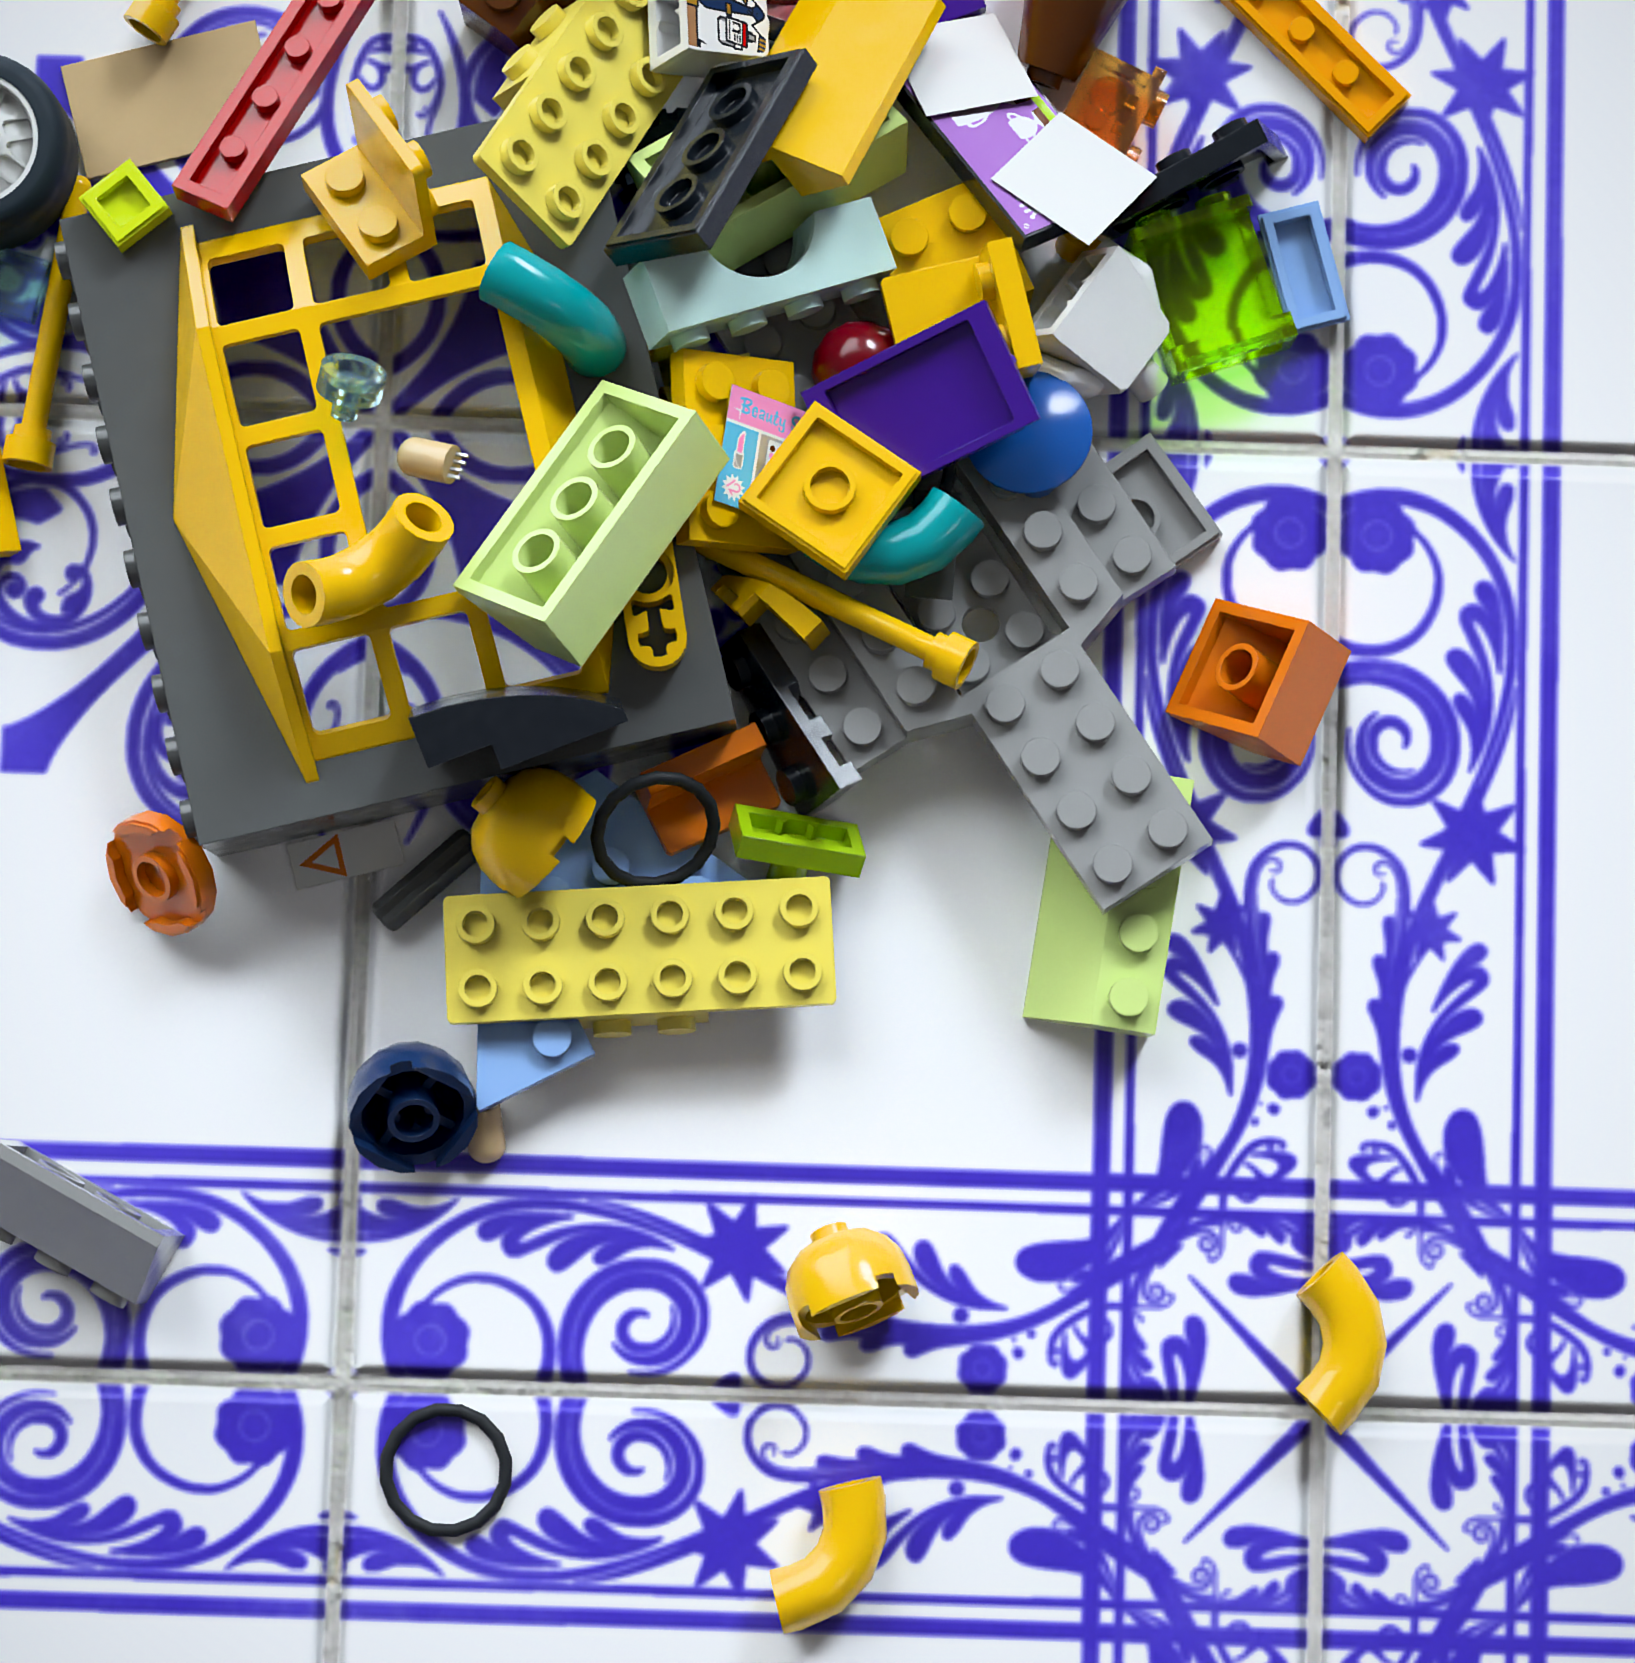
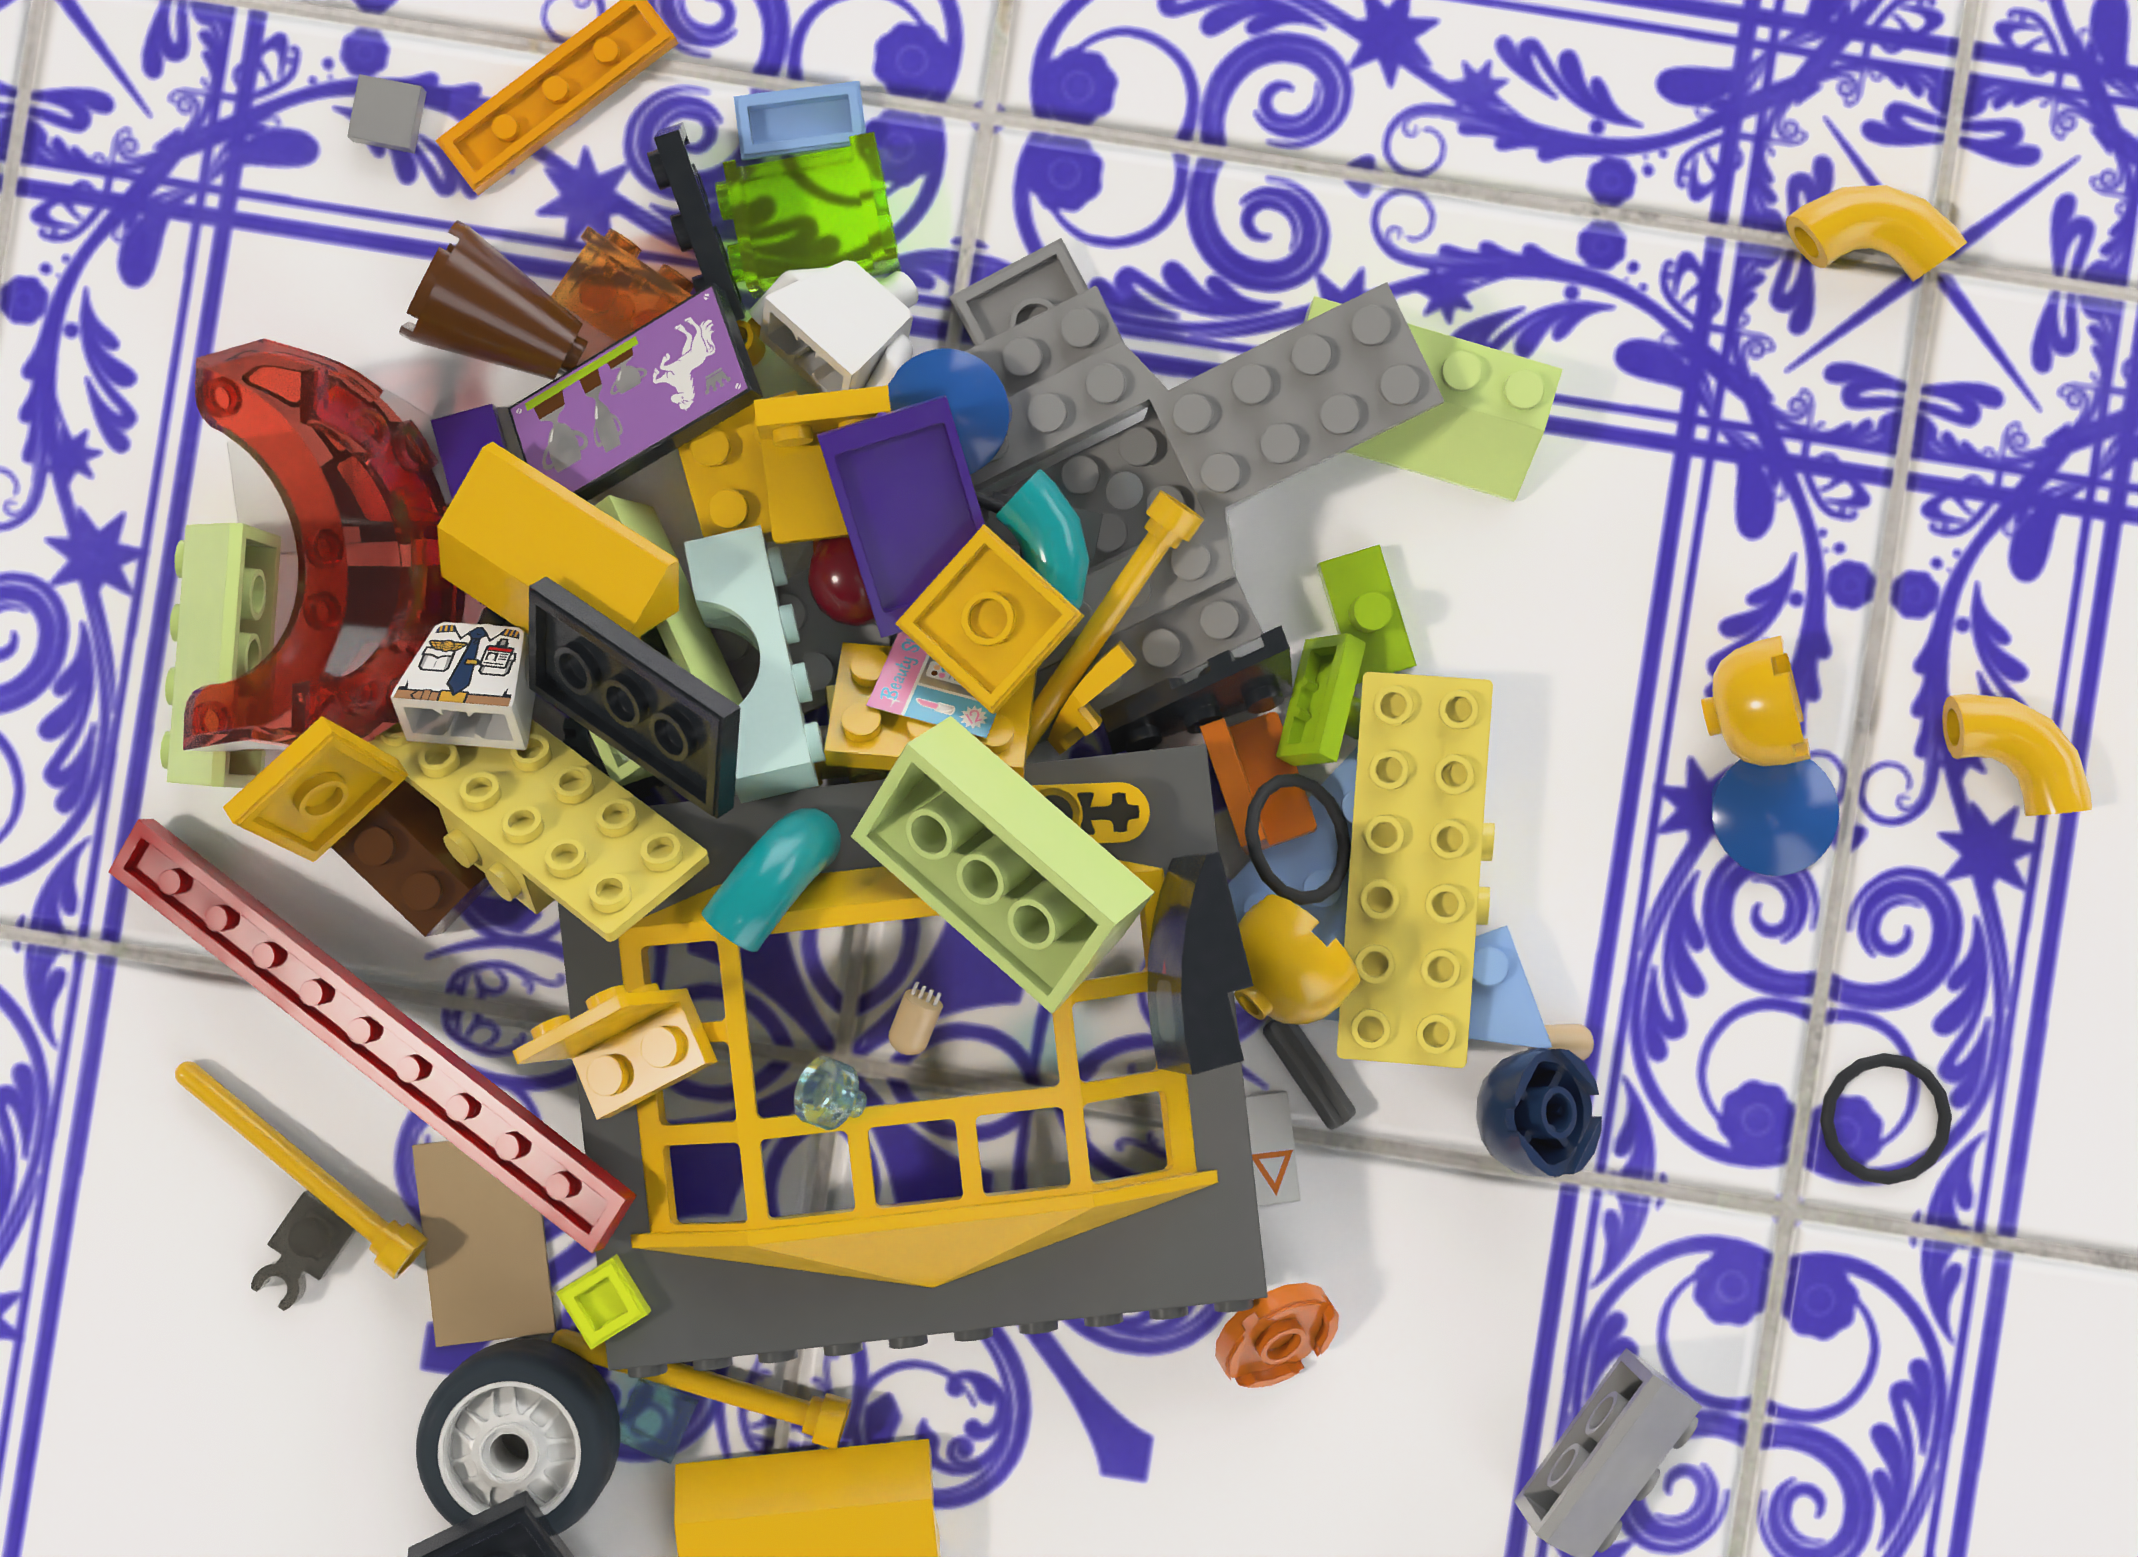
camera: 75 degrees left, 5 degrees up
(372, 568) = (1023, 1094): yellow cylinder -> none
(738, 1317) = (1775, 815): none -> blue dish
(892, 882) = (1367, 608): none -> lime tile
(968, 67) = (557, 426): white sticker -> none
(1074, 178) = (690, 333): white sticker -> none
(1259, 680) = (1214, 221): orange slope -> none

